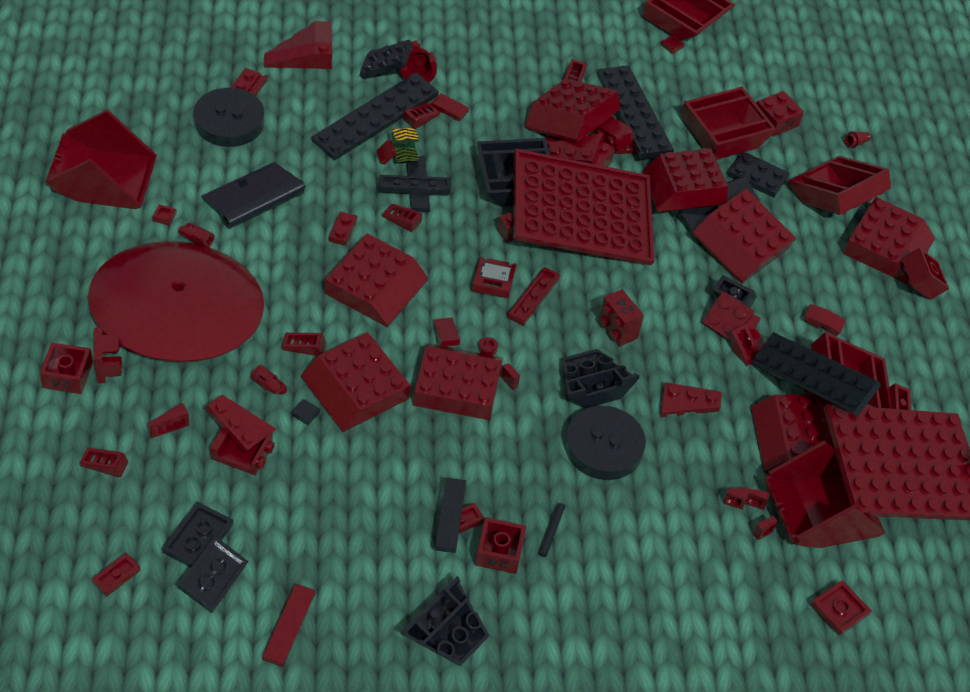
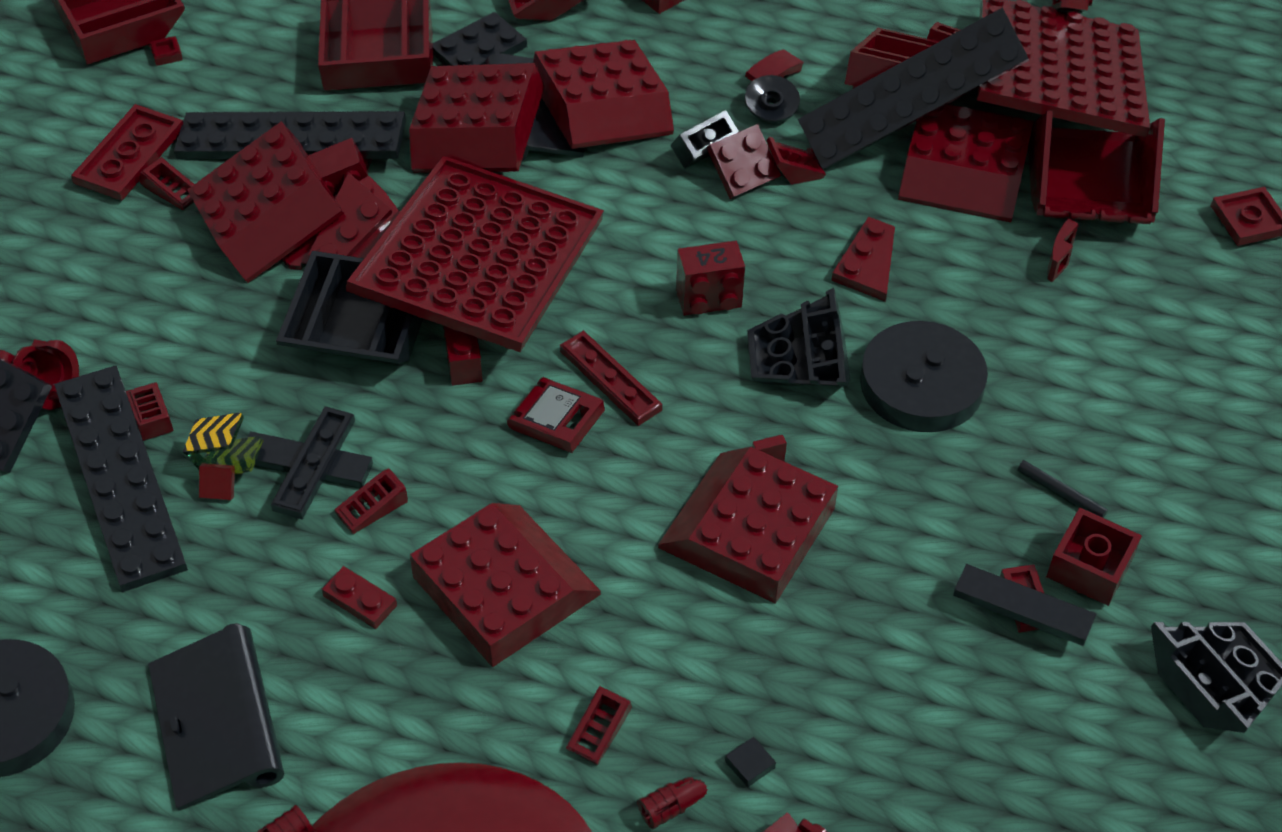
camera: 65 degrees left, 0 degrees up
(356, 382) = (716, 667): dark red slope -> none
(446, 332) = (650, 509): dark red tile -> none
(450, 107) = (152, 365): dark red tile -> none
(488, 346) = (691, 466): dark red tile -> none
(589, 51) = (126, 151): none -> dark red plate
(765, 528) = (1113, 247): dark red tile -> none
(793, 315) = (772, 90): none -> black dish

